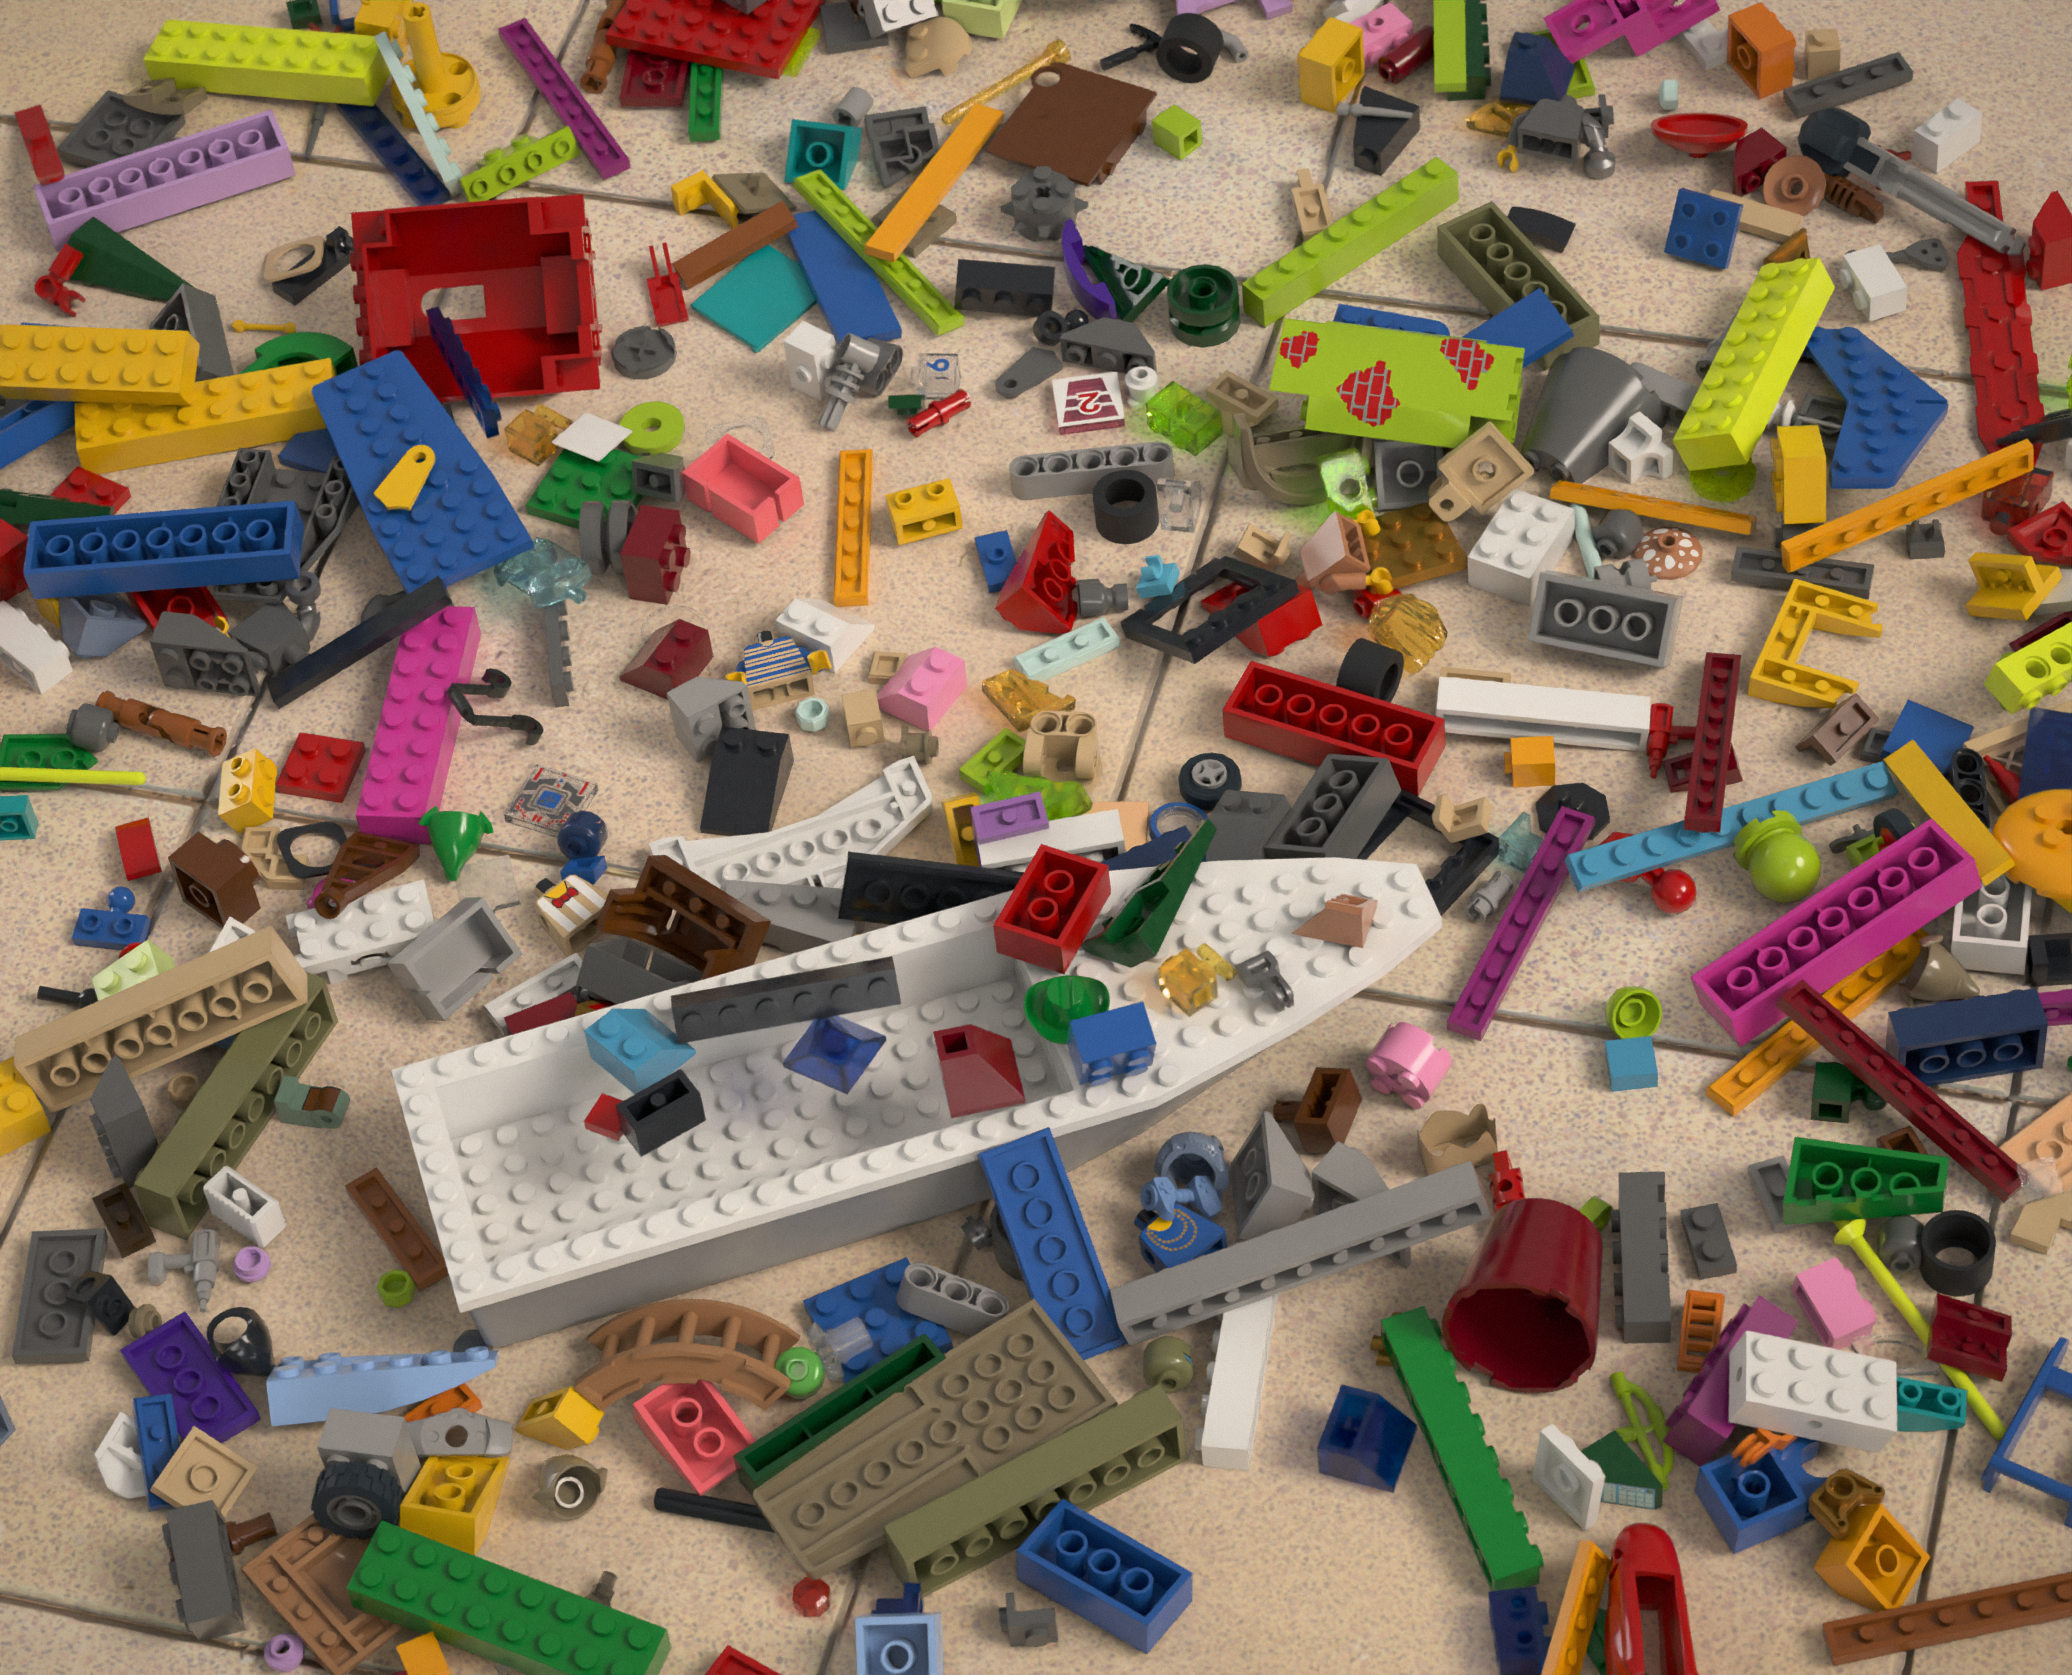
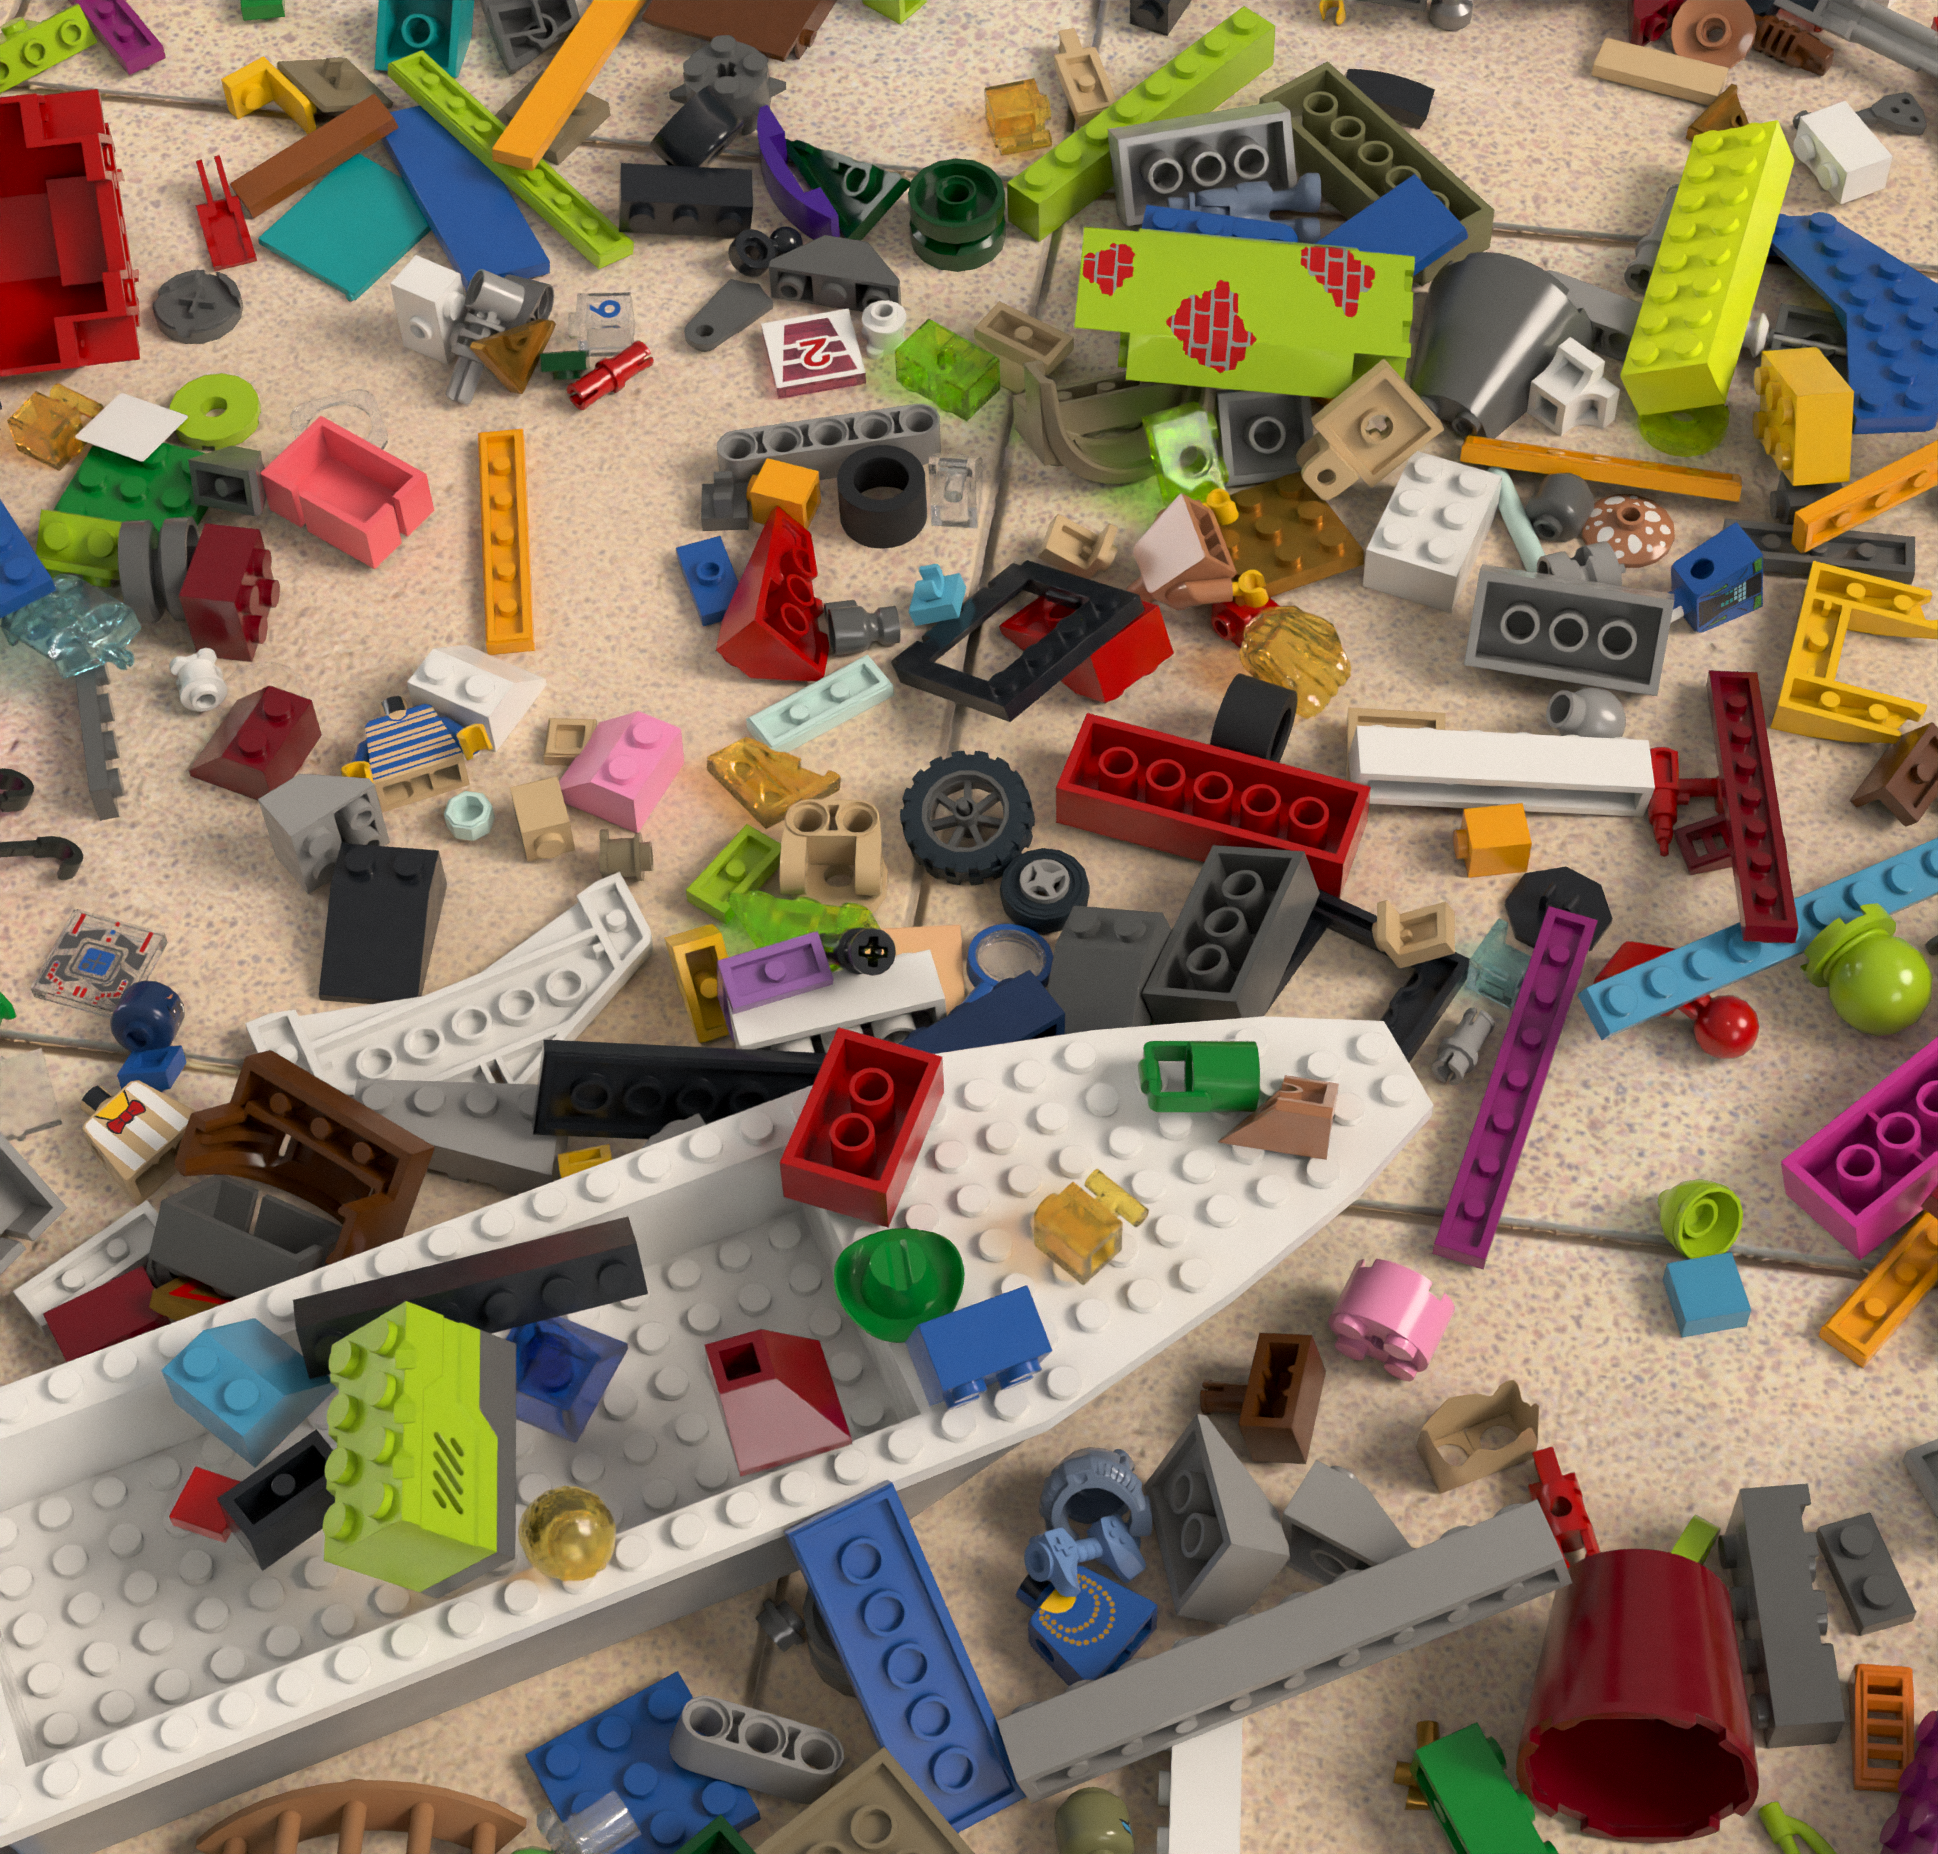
camera: 10 degrees left, 5 degrees up
(551, 518) = (79, 546): none -> lime bracket
(630, 615) = (199, 680): none -> white brick
(746, 1083) = (422, 1451): none -> lime piece
(837, 1143) = (568, 1533): none -> clear yellow hair
(870, 394) = (515, 352): none -> pearl gold tile
(922, 509) = (601, 512): yellow brick -> none
(1013, 507) = (724, 504): none -> dark grey tile
(1017, 237) = (698, 131): none -> black piece
(1058, 497) = (789, 487): none -> light orange brick
(1063, 805) = (851, 946): none -> black pin
(1150, 909) = (1008, 1111): dark green wedge -> none
(1160, 699) = (967, 773): none -> black wheel
(1258, 234) = (1017, 117): none -> clear yellow brick
(1270, 981) = (1217, 1243): flat silver piece -> none
(1294, 890) = (1216, 1076): none -> green piece
(1390, 272) = (1200, 155): none -> light grey brick
(1424, 303) = (1257, 199): none -> sand blue piece
(1610, 677) = (1587, 713): none -> light grey piece
(1703, 228) = (1608, 88): blue plate -> none
(1719, 590) = (1718, 580): none -> blue torso

